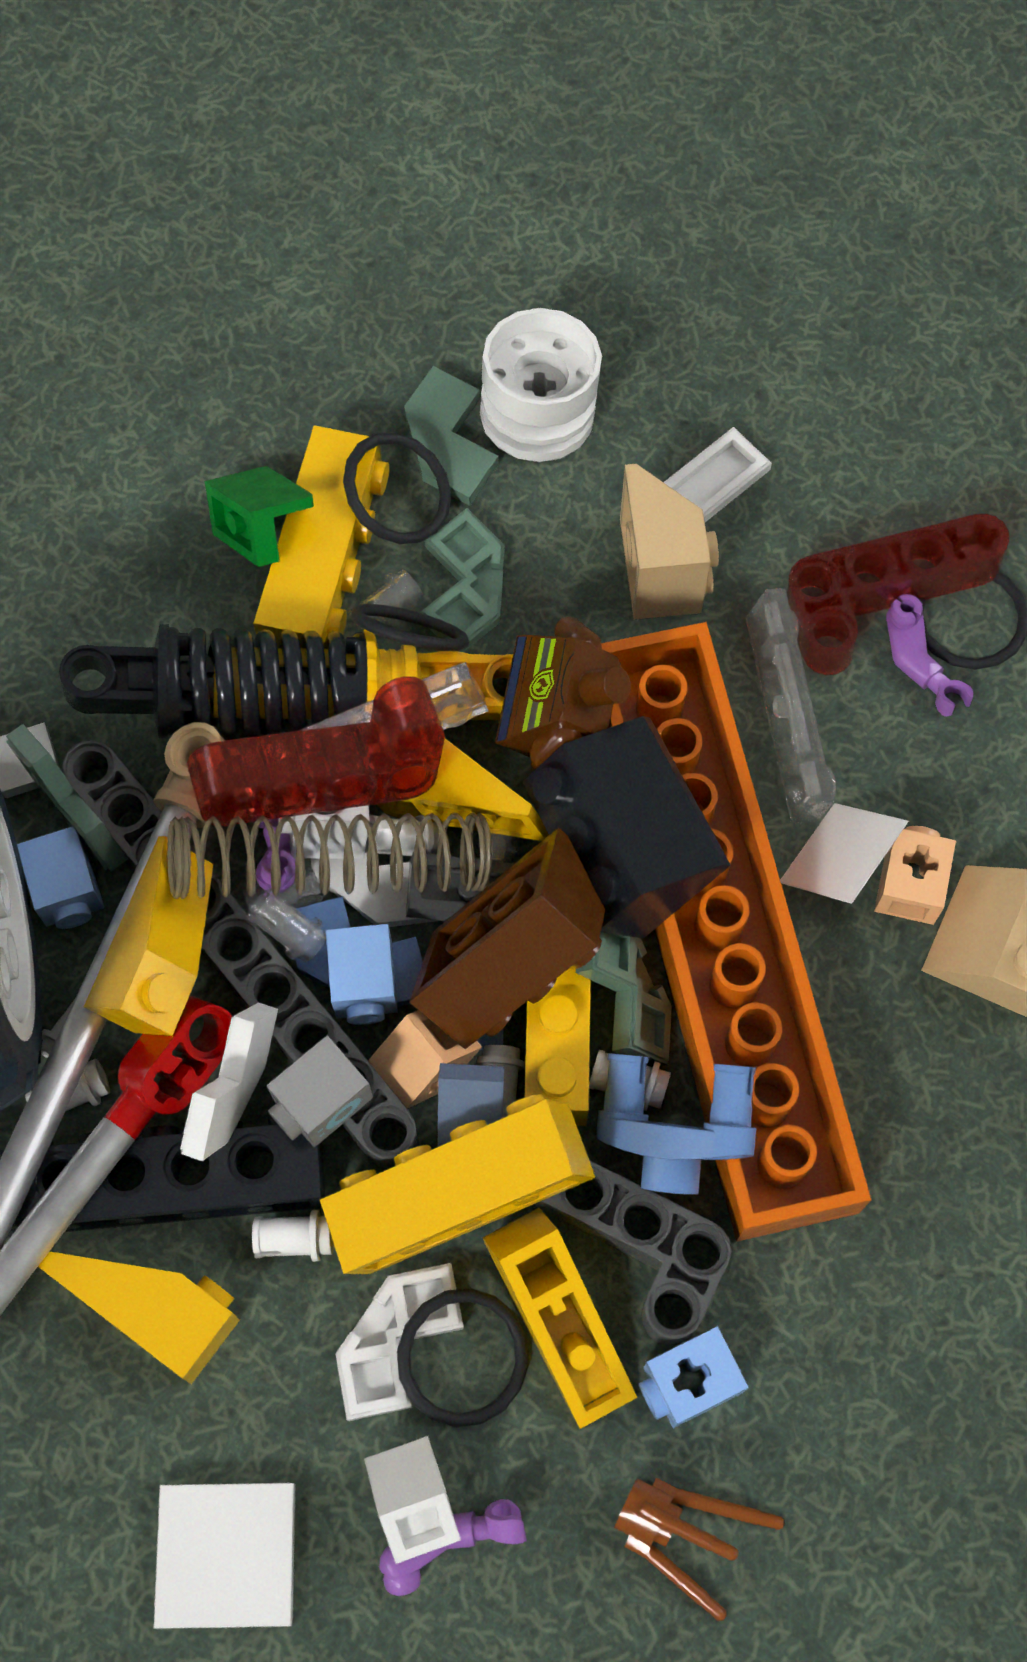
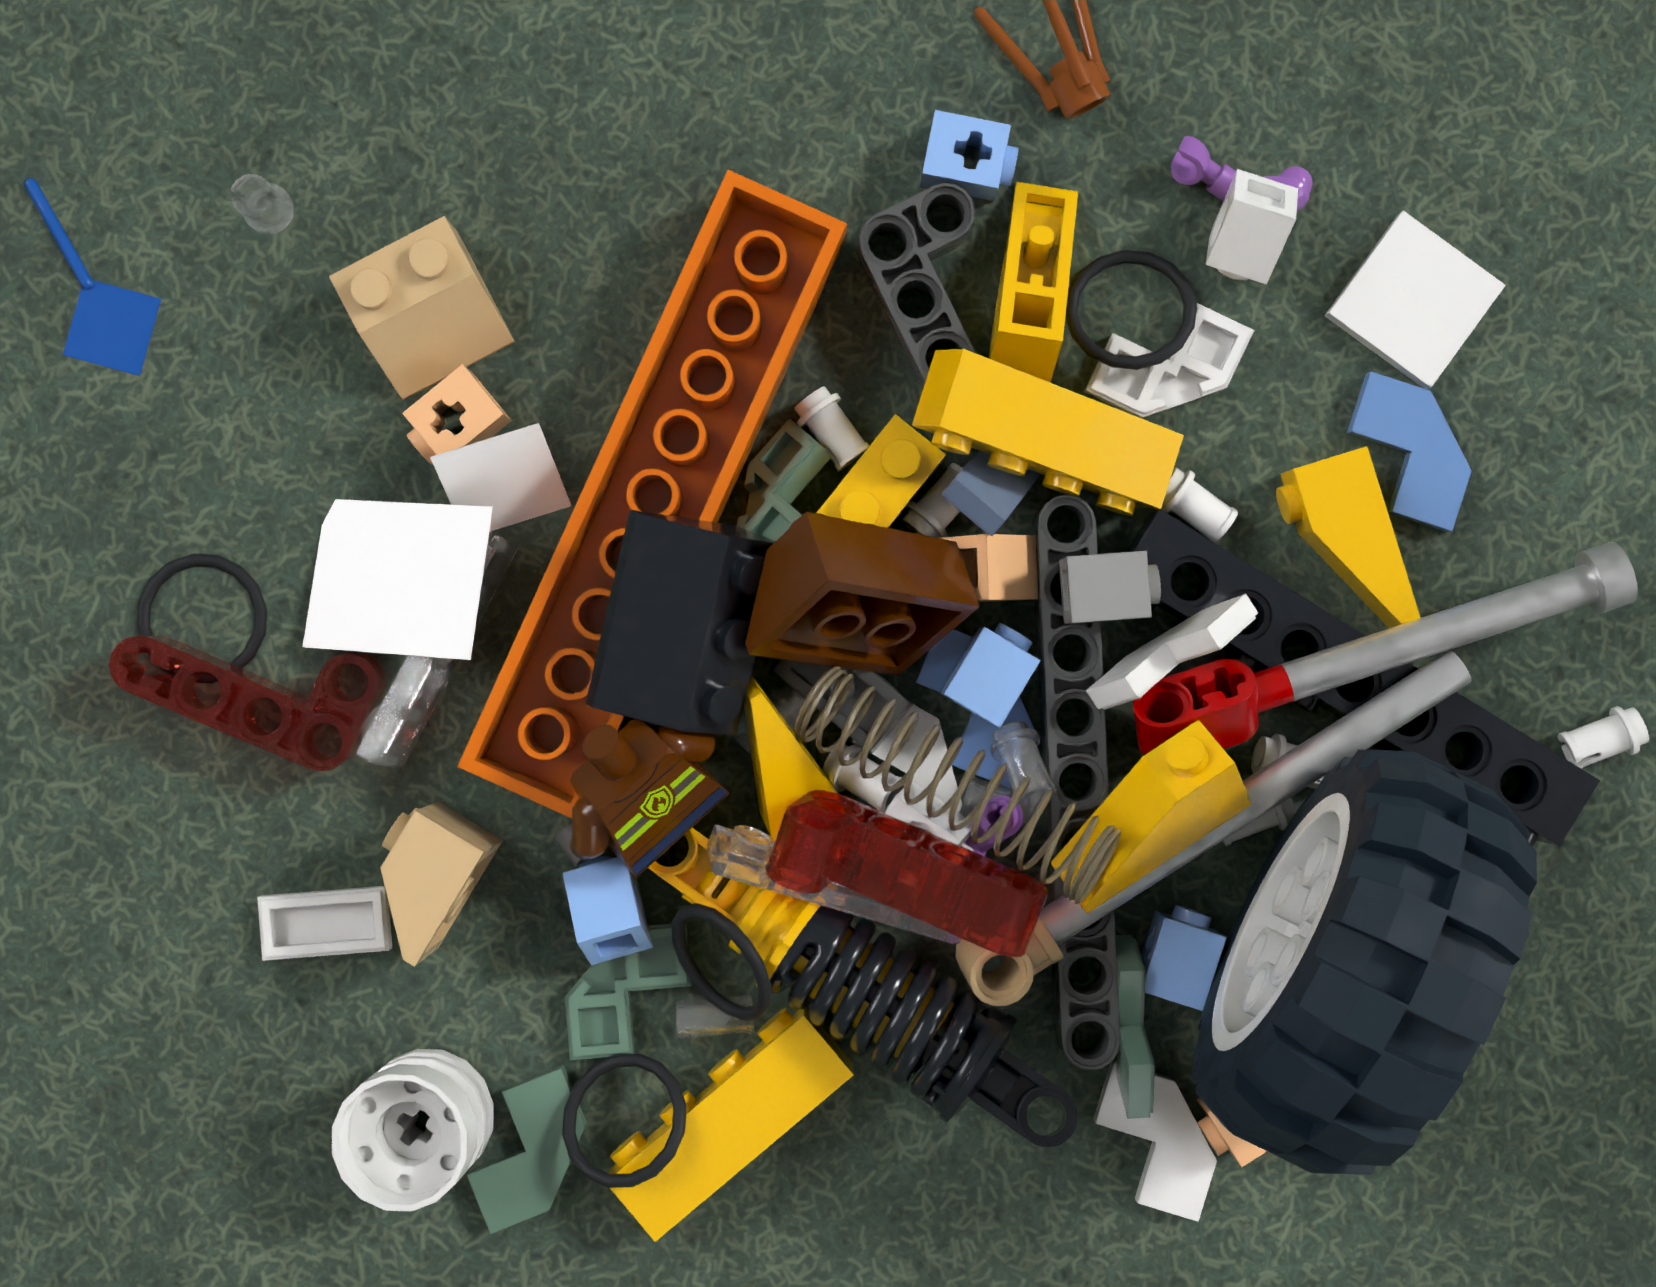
camera: 145 degrees left, 20 degrees up
(111, 1421) = (1434, 465): none -> medium blue tile
(245, 508) = (769, 1198): green panel -> none
(517, 607) = (606, 909): none -> light blue brick
(669, 1150) = (852, 333): medium blue connector -> none
(857, 730) = (398, 578): none -> white sticker
(910, 653) = (287, 621): medium lavender arm -> none

